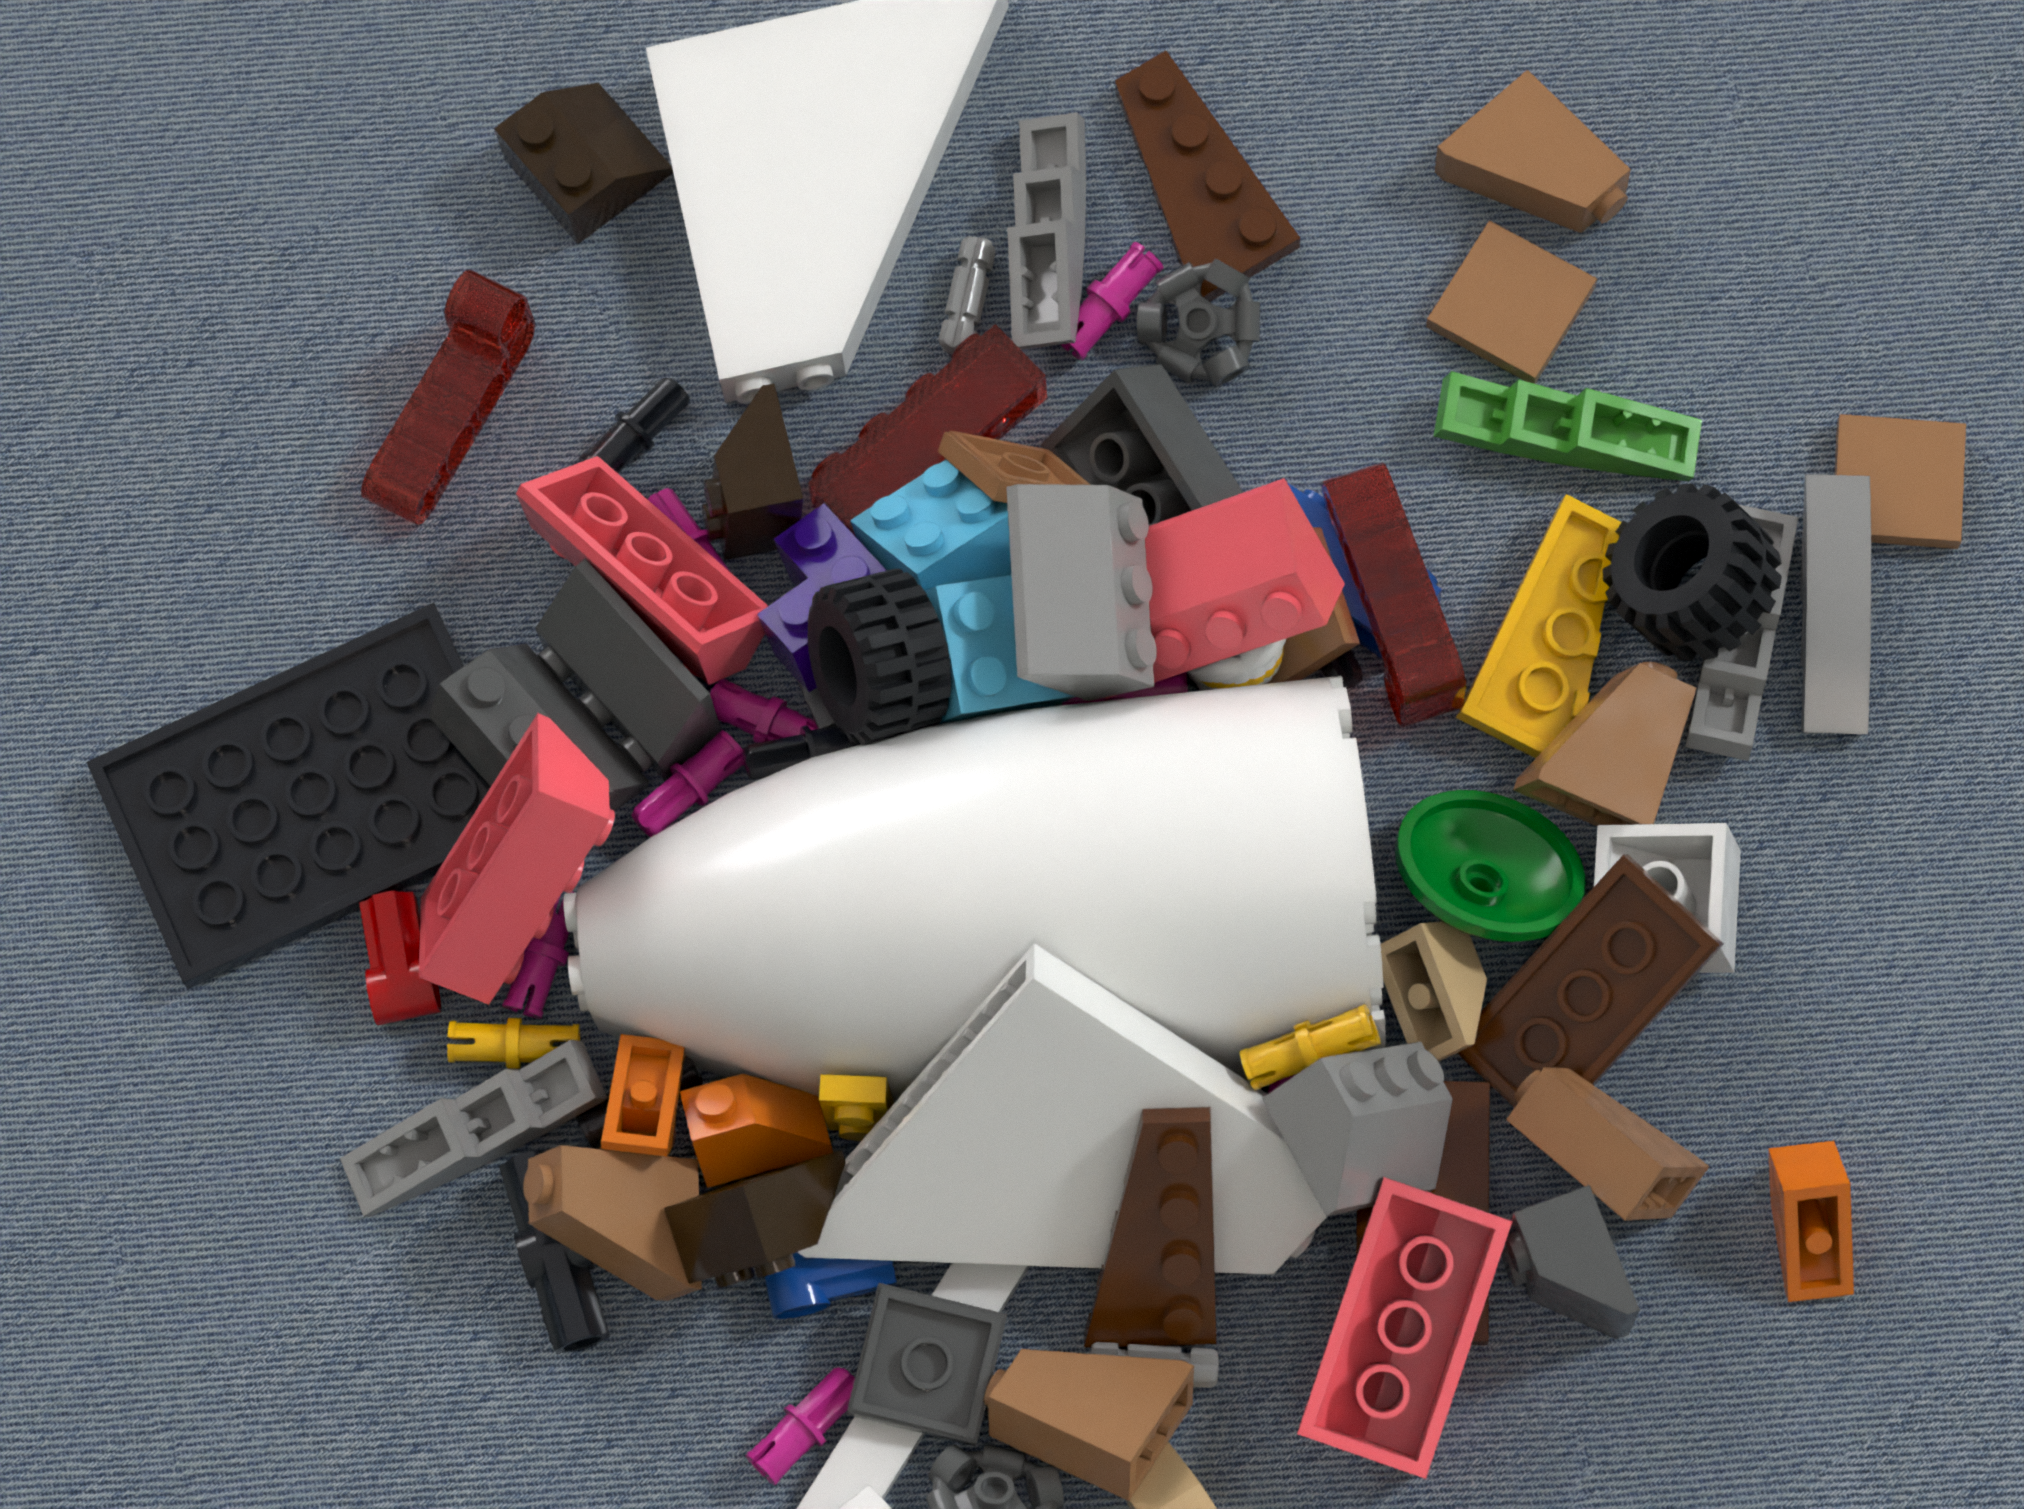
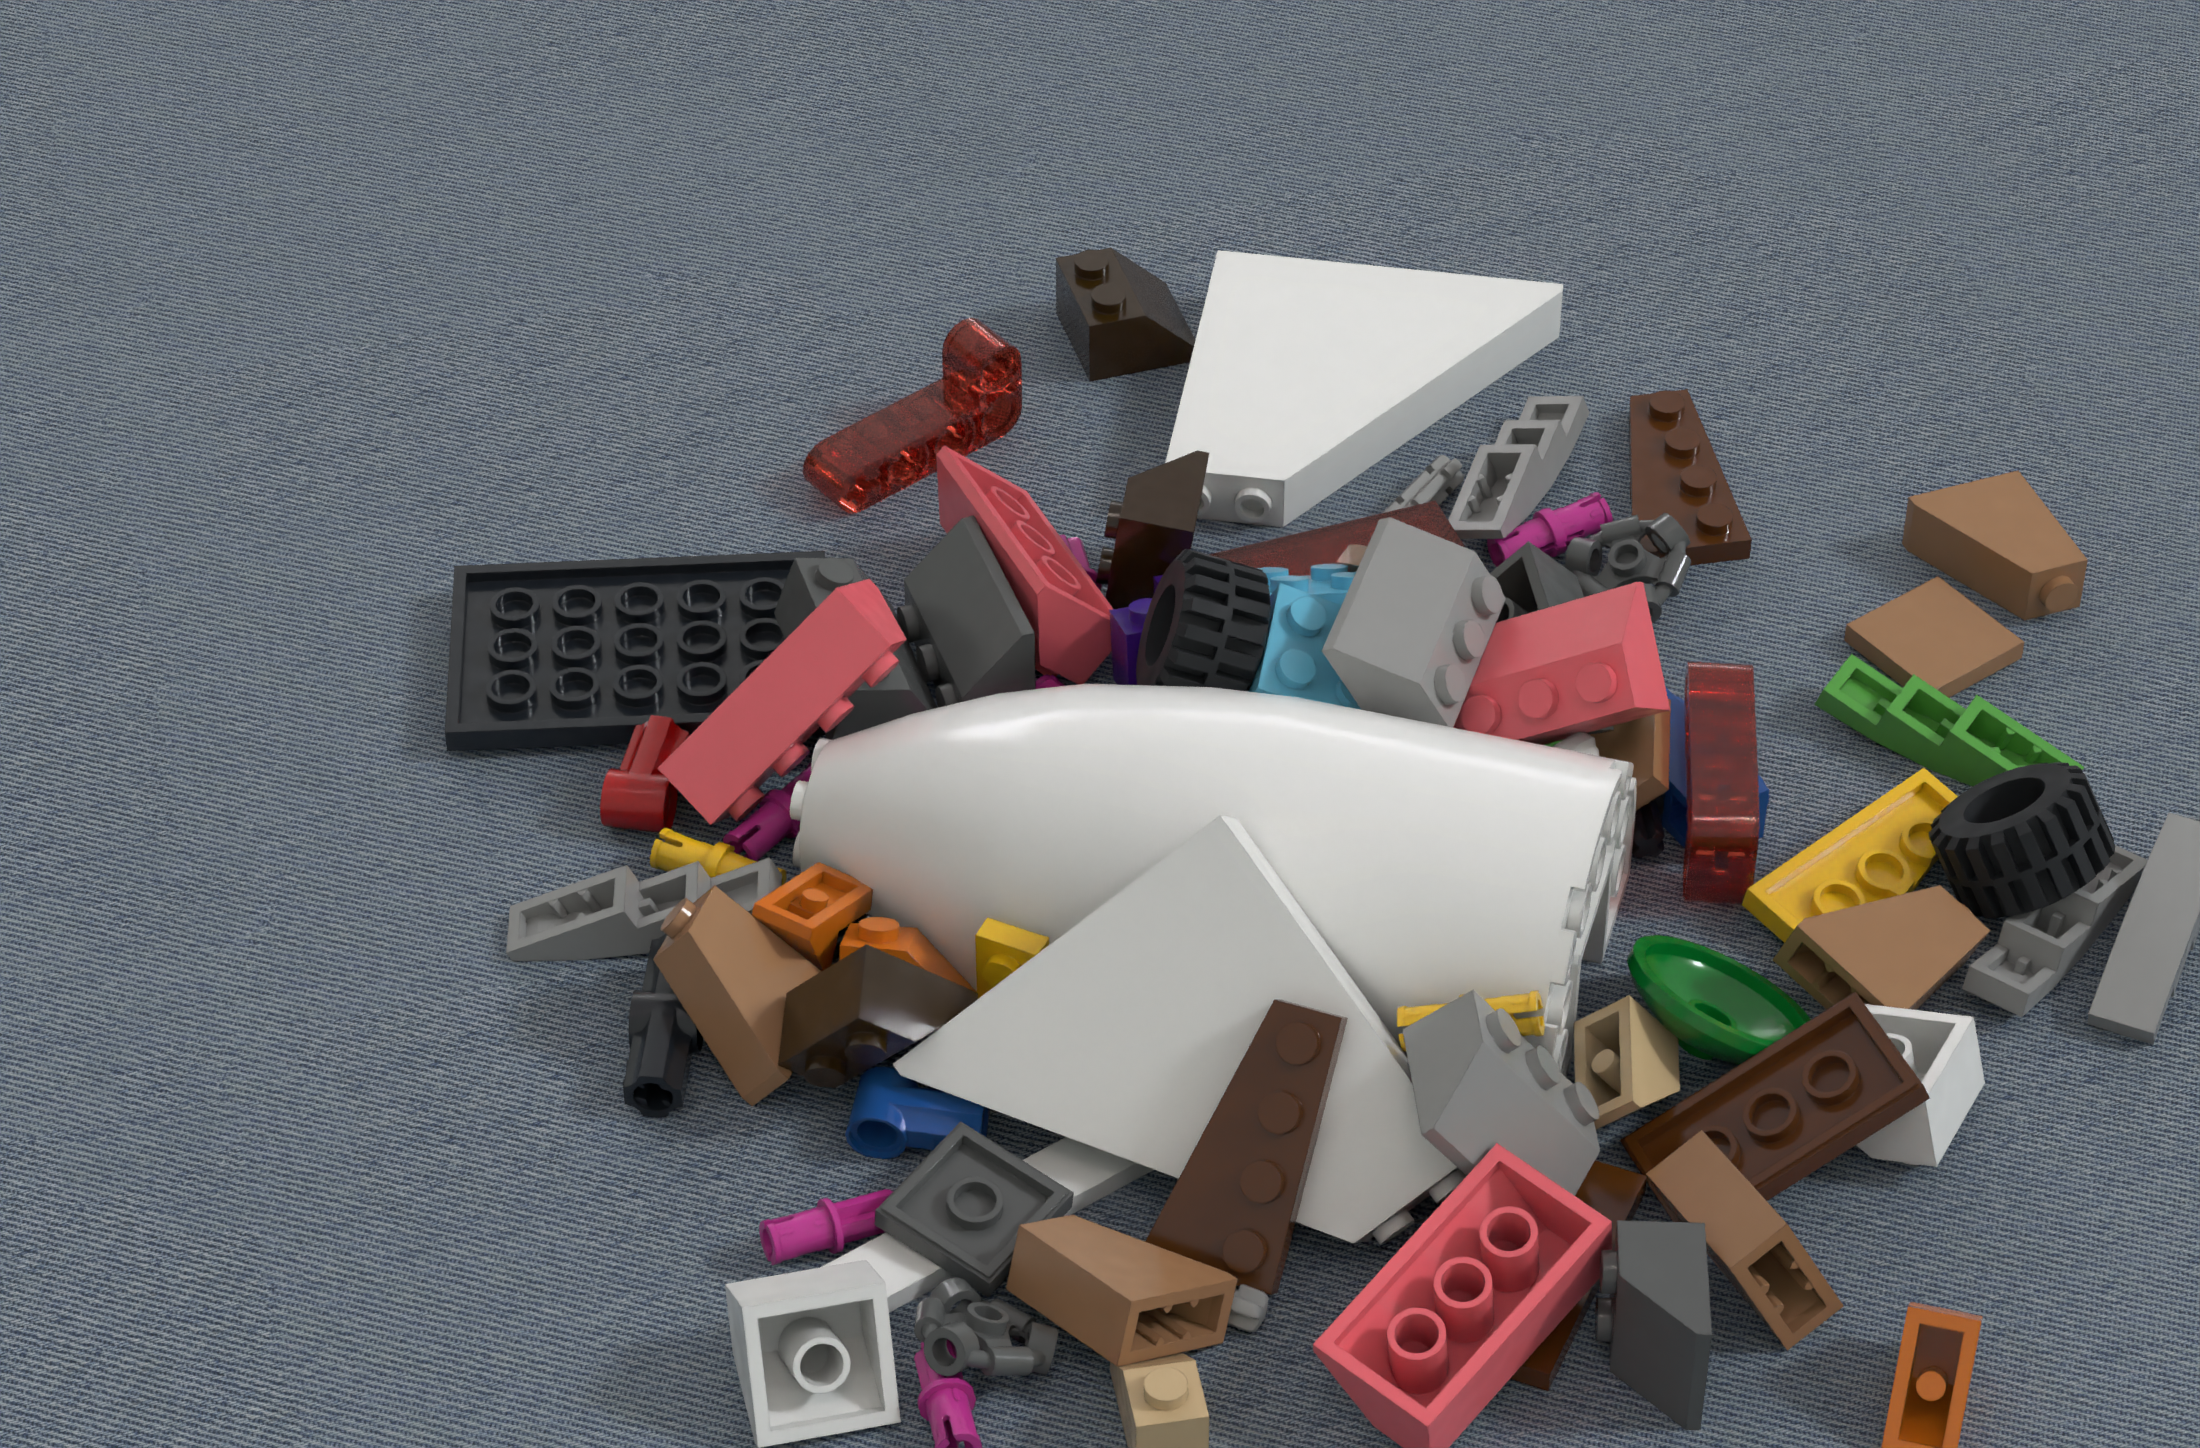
camera: 15 degrees right, 30 degrees down
(640, 425) = (1076, 498): black axle -> none

